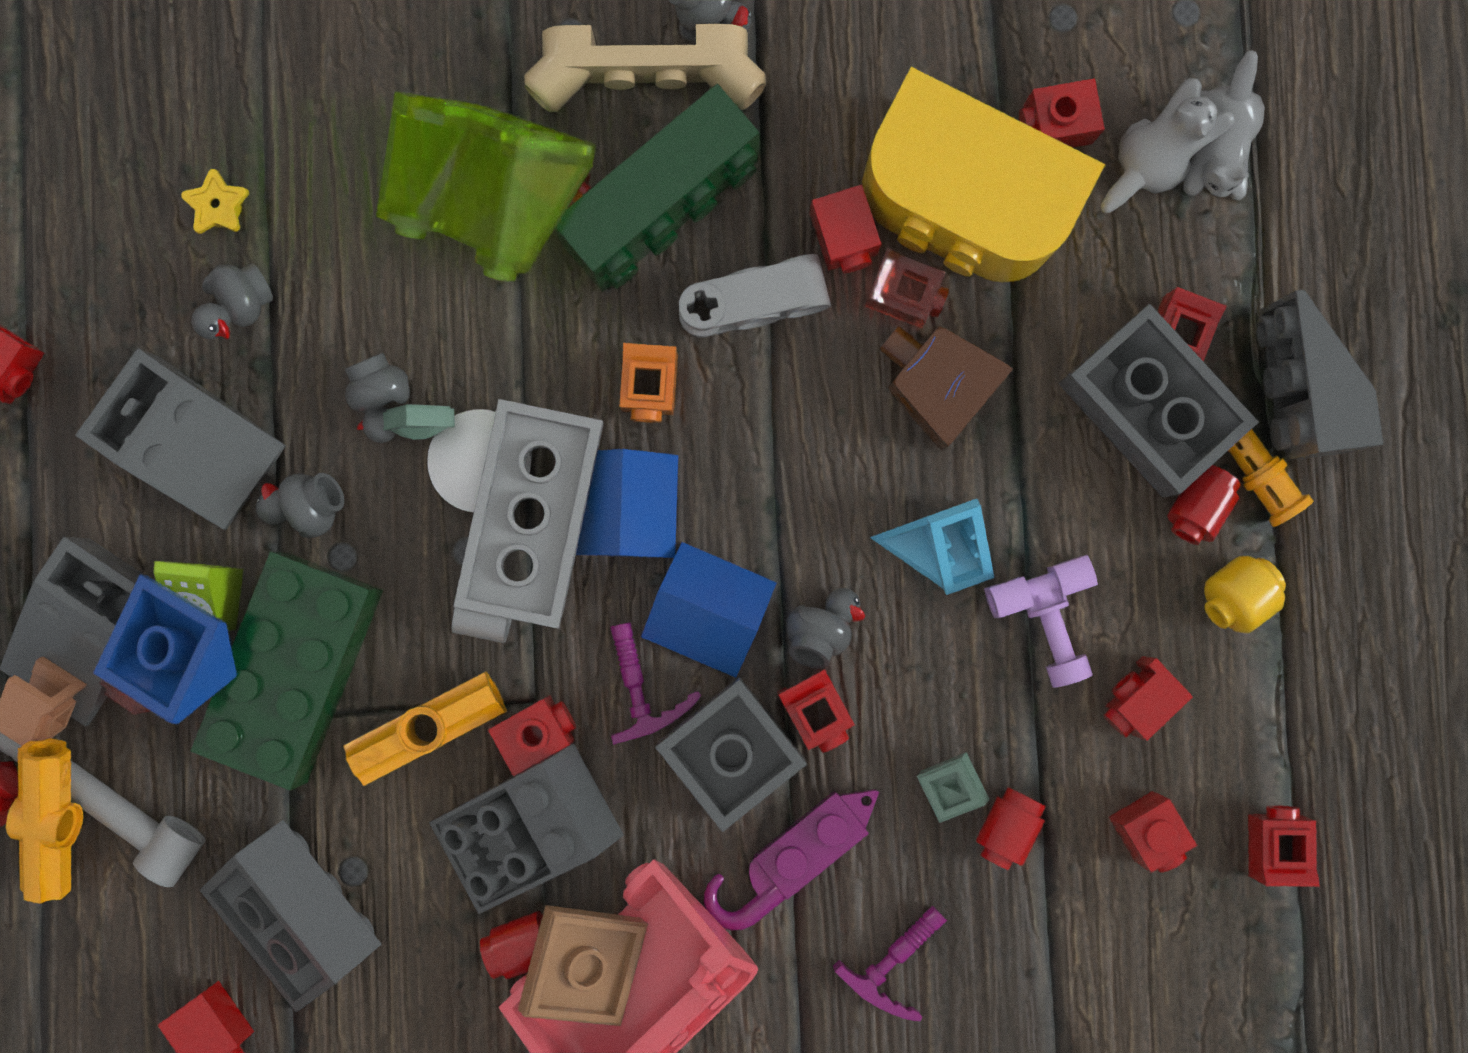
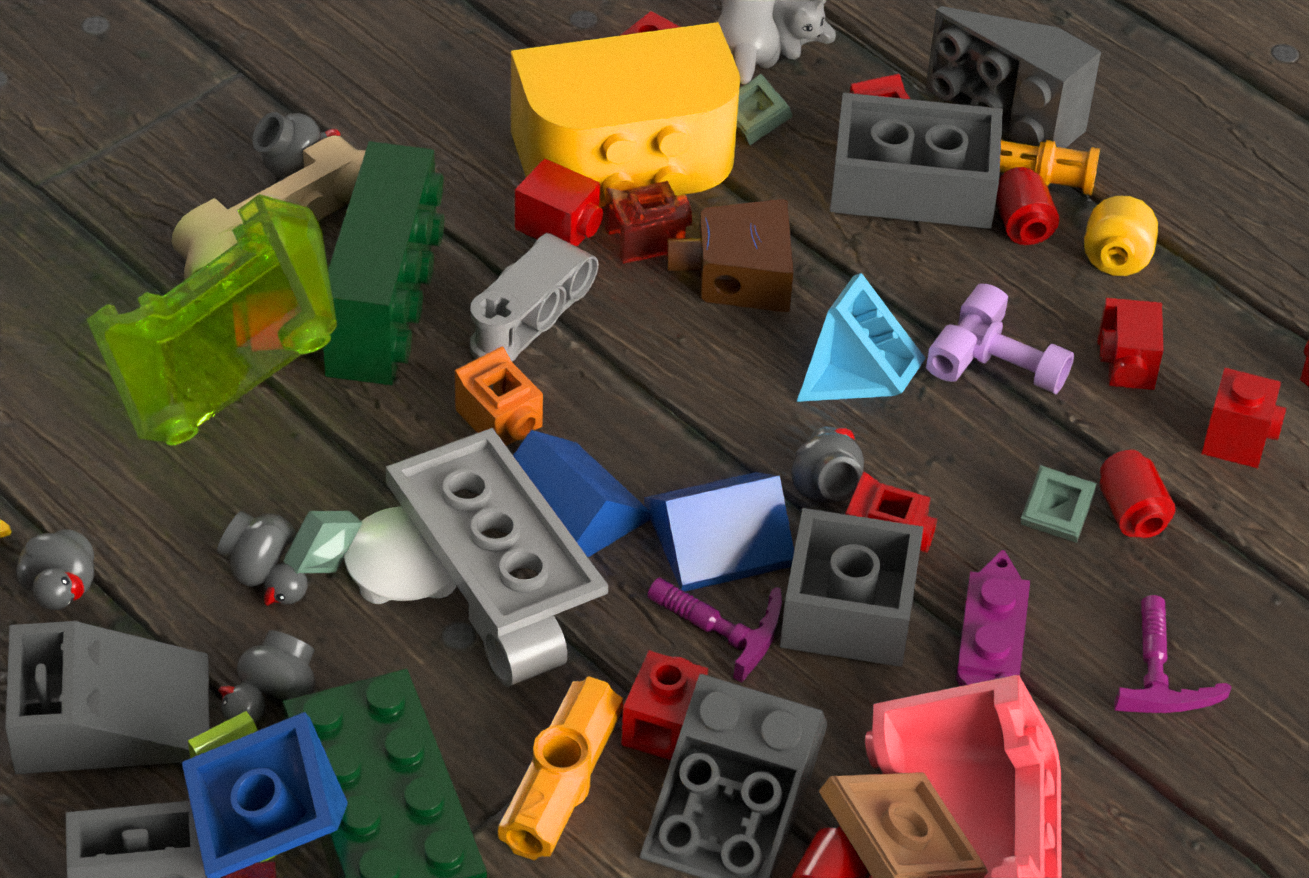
camera: 45 degrees left, 40 degrees down
(1097, 237) = (760, 109): none -> sand green tile

